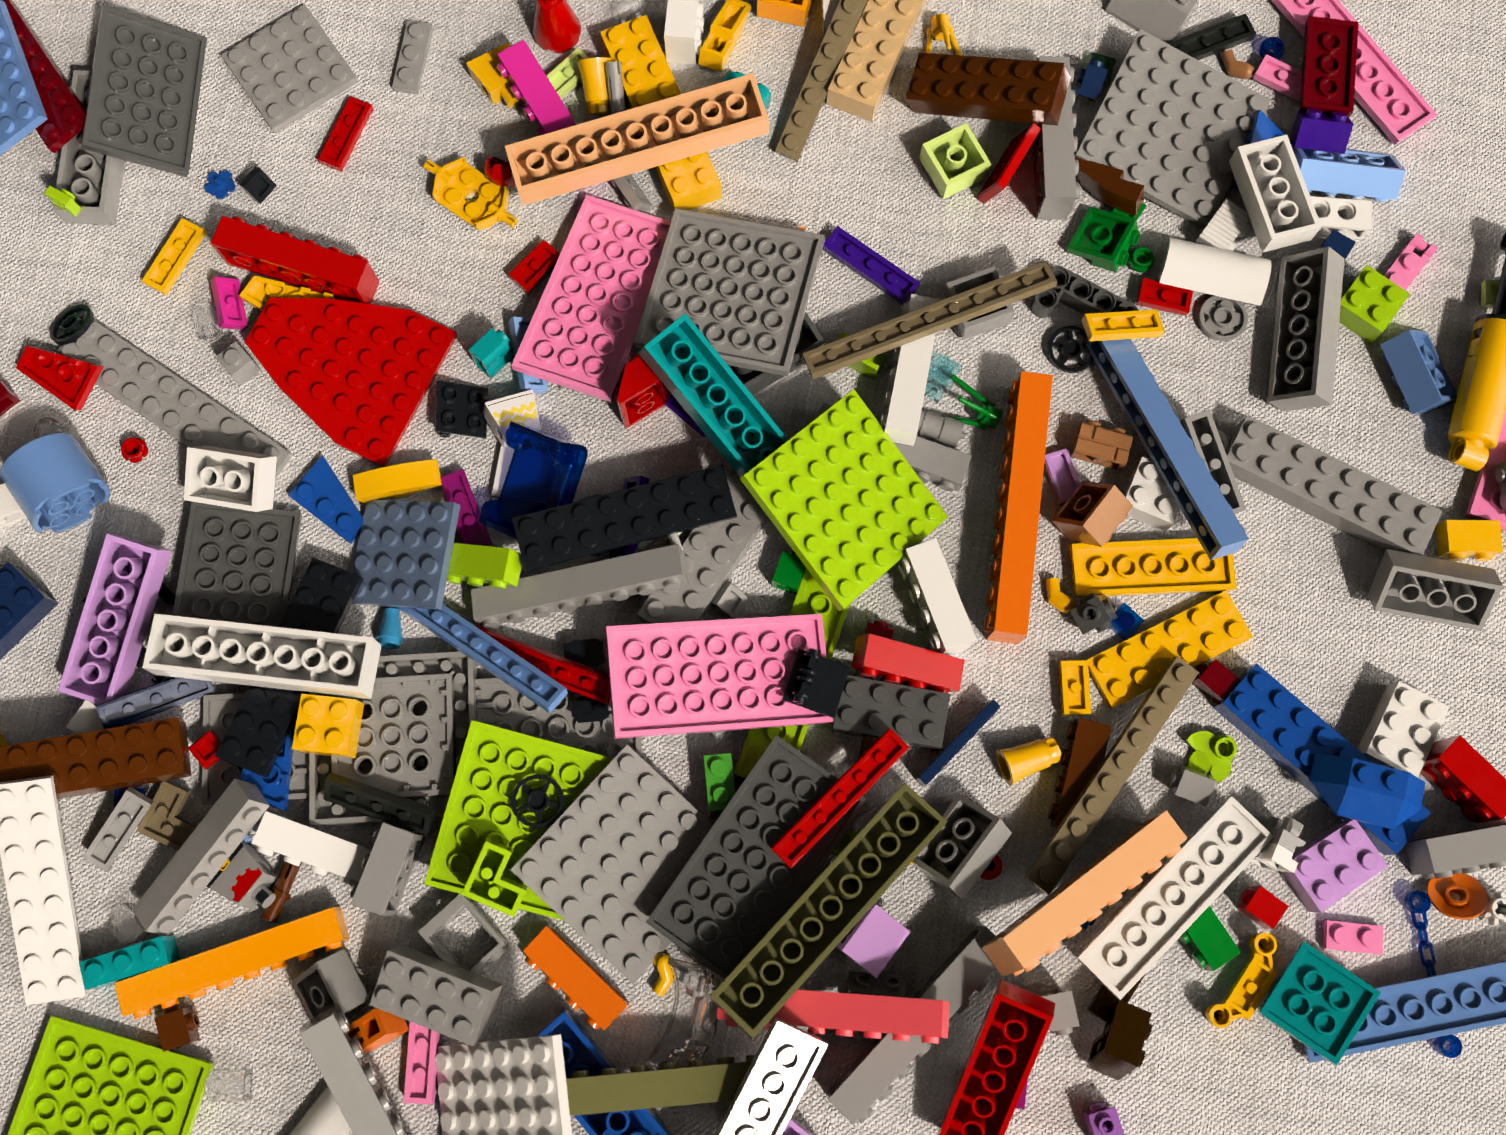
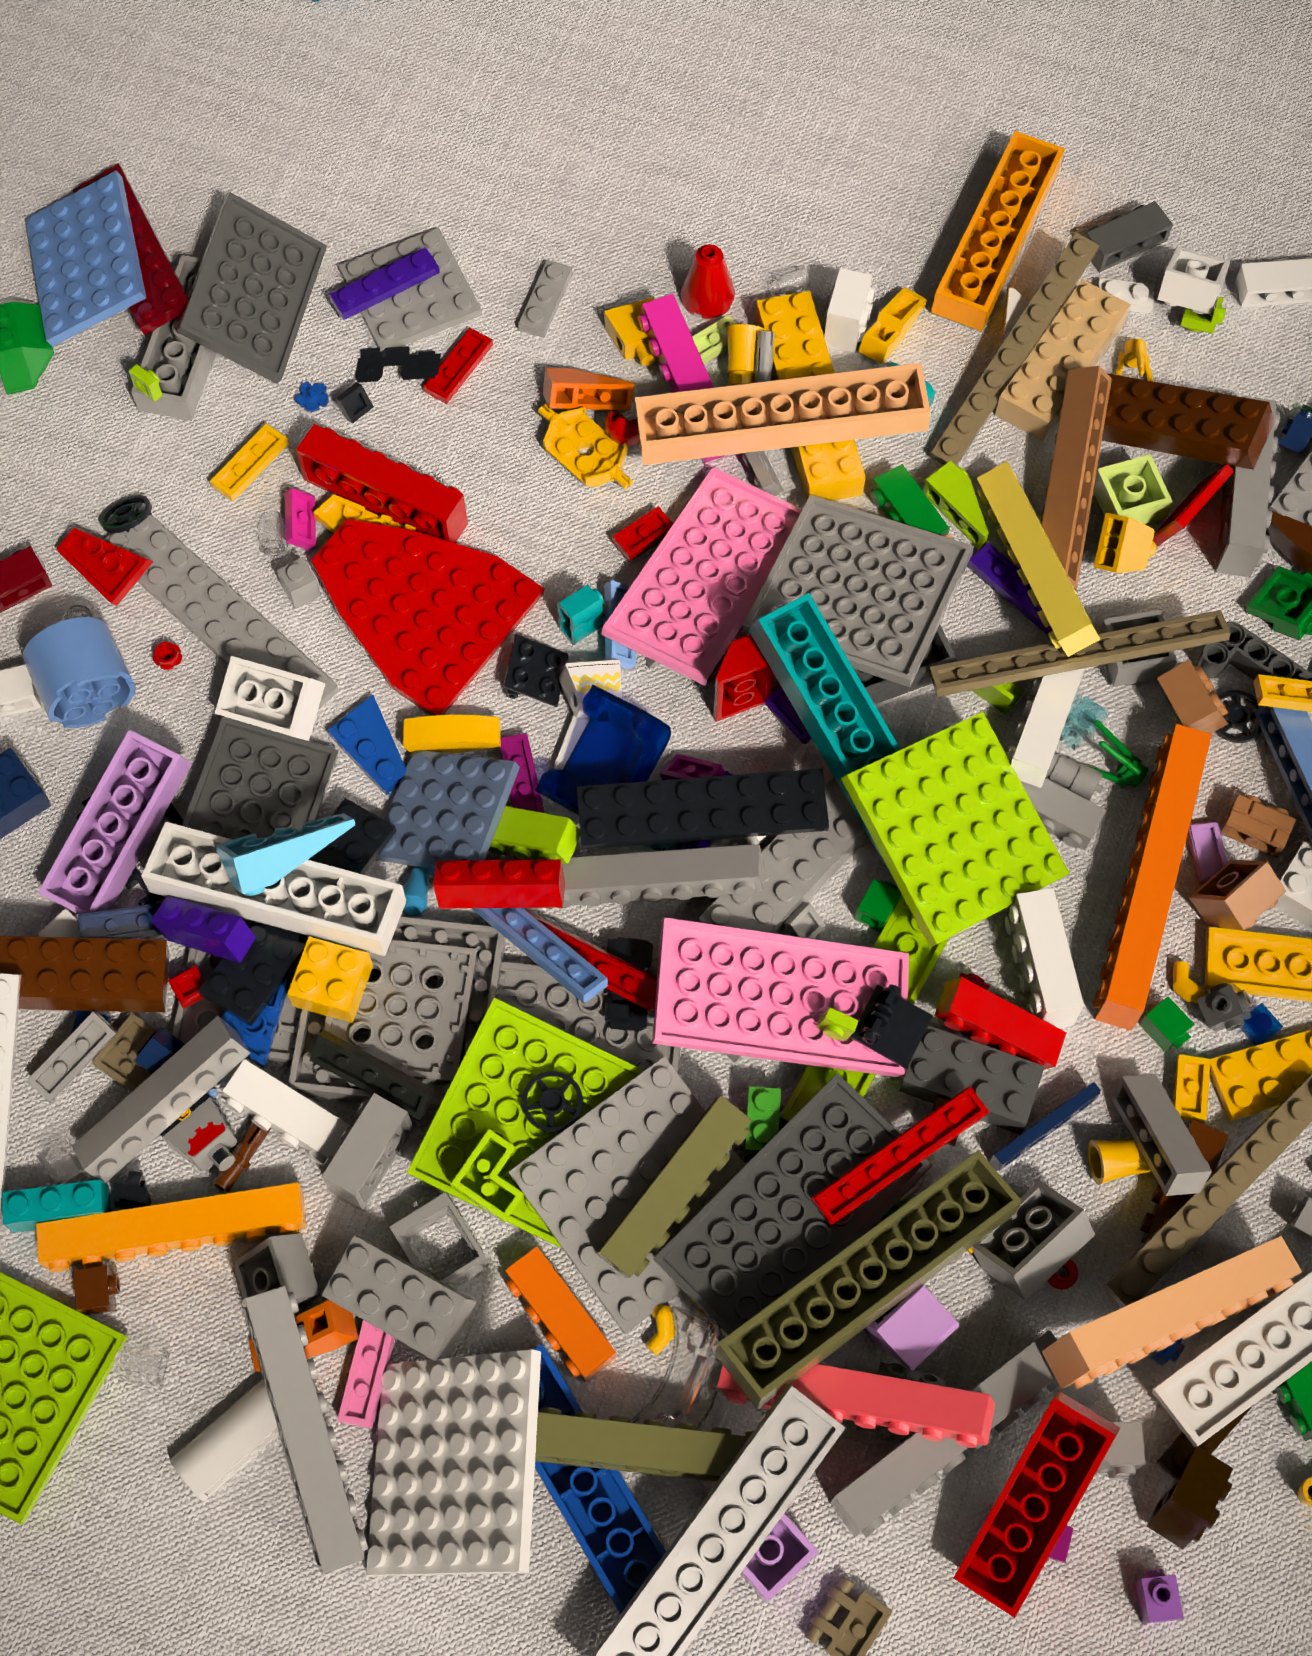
camera: 10 degrees right, 10 degrees down
(192, 812) = (158, 1050): none -> dark blue brick
(193, 938) = (132, 1193): none -> black tile
(208, 701) = (203, 928): none -> dark purple brick
(247, 637) = (264, 861): none -> wedge
(264, 67) = (384, 283): none -> dark purple plate
(306, 141) = (419, 366): none -> black piece
(456, 140) = (577, 388): none -> orange slope
(459, 616) = (499, 884): none -> red brick
(609, 480) = (689, 767): none -> magenta plate
(653, 858) = (673, 1187): none -> olive brick
(761, 201) = (906, 502): none -> green brick
(769, 693) = (837, 1024): none -> lime plate
(800, 186) = (955, 498): none -> lime slope
(882, 239) = (1037, 560): none -> light yellow brick
(901, 156) = (1075, 465): none -> medium nougat brick
(954, 211) = (1124, 544): none -> yellow torso
(1032, 344) = (1191, 697): none -> medium nougat brick
(1048, 636) = (1167, 1025): none -> green brick
(1055, 738) = (1161, 1135): none -> light grey brick

